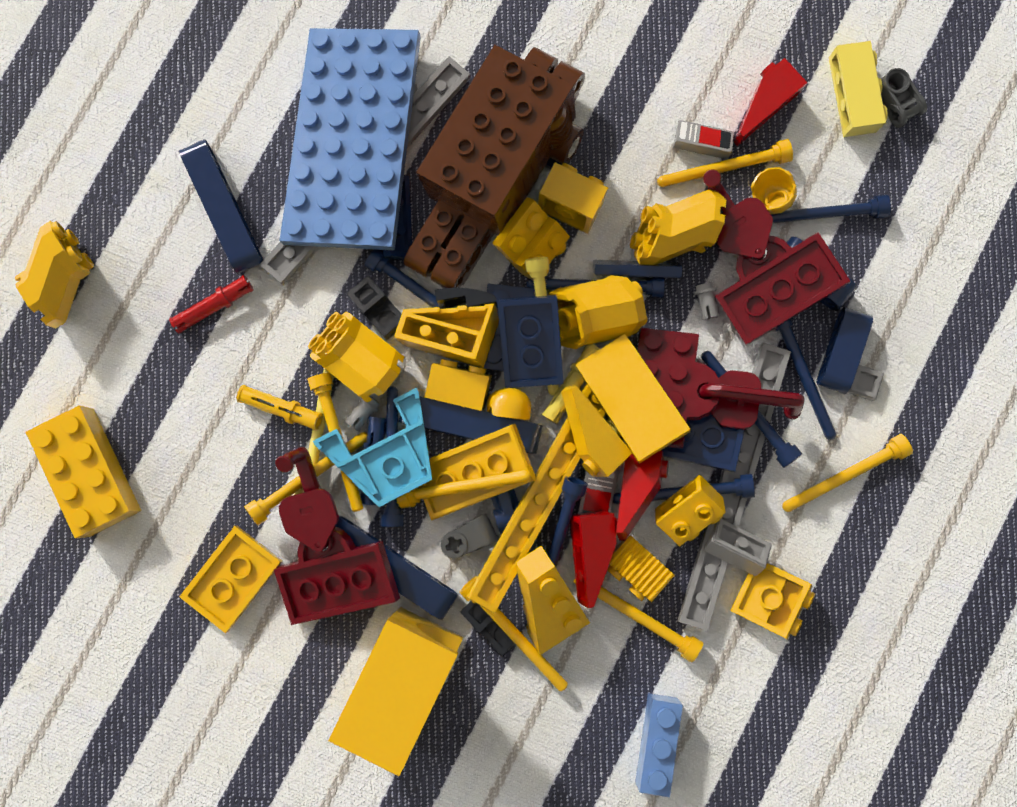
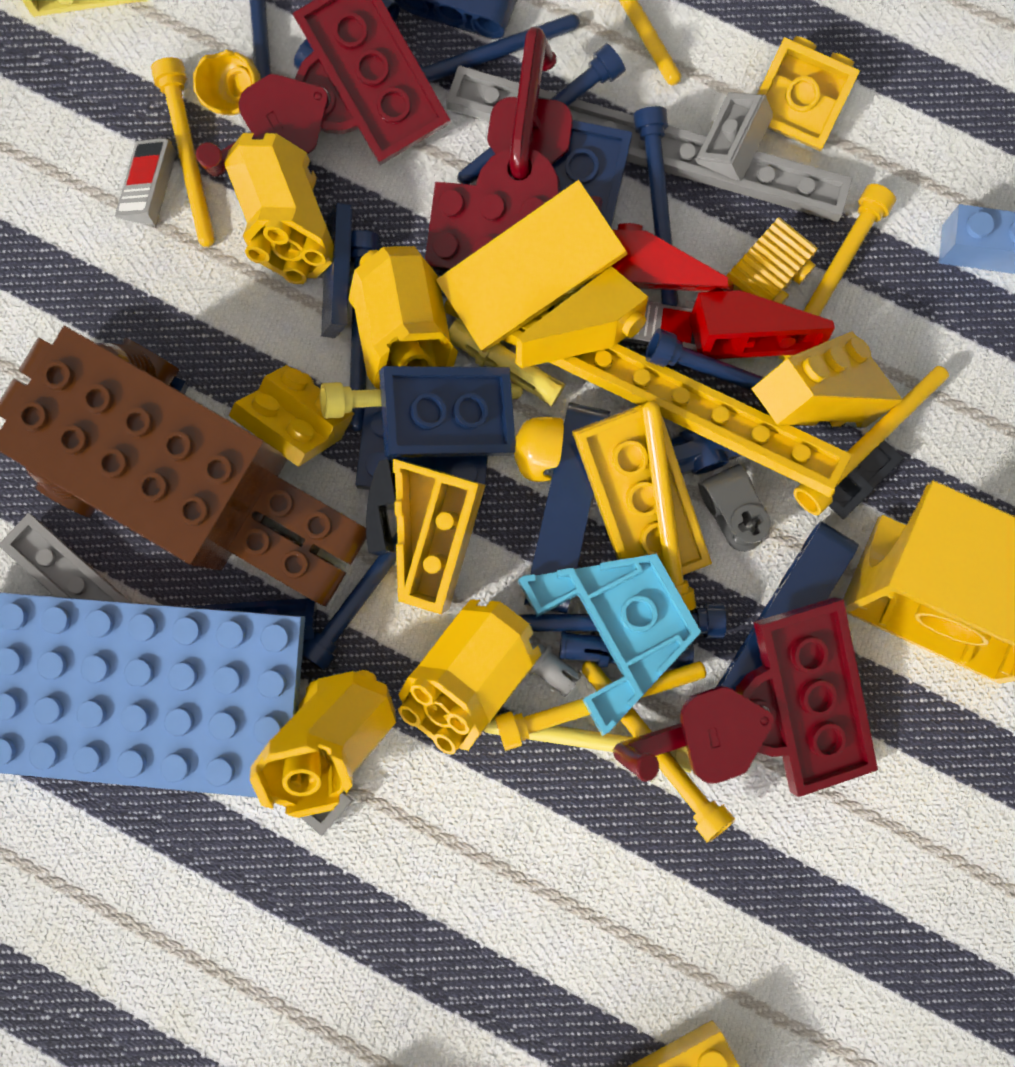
camera: 90 degrees left, 5 degrees down
(221, 206) = (223, 903): dark blue beam -> none
(221, 298) = (384, 915): red pin -> none
(230, 579) = (814, 867): yellow plate -> none
(309, 417) = (531, 847): yellow pin -> none
(312, 264) = (323, 743): none -> yellow brick
(376, 307) = (393, 646): black slope -> none
(458, 385) = (511, 521): yellow brick -> none
(572, 197) = (229, 353): yellow brick -> none
(690, 511) = (688, 195): yellow brick -> none
(707, 300) = (381, 177): light grey pin -> none
(775, 90) = (87, 90): red slope -> none

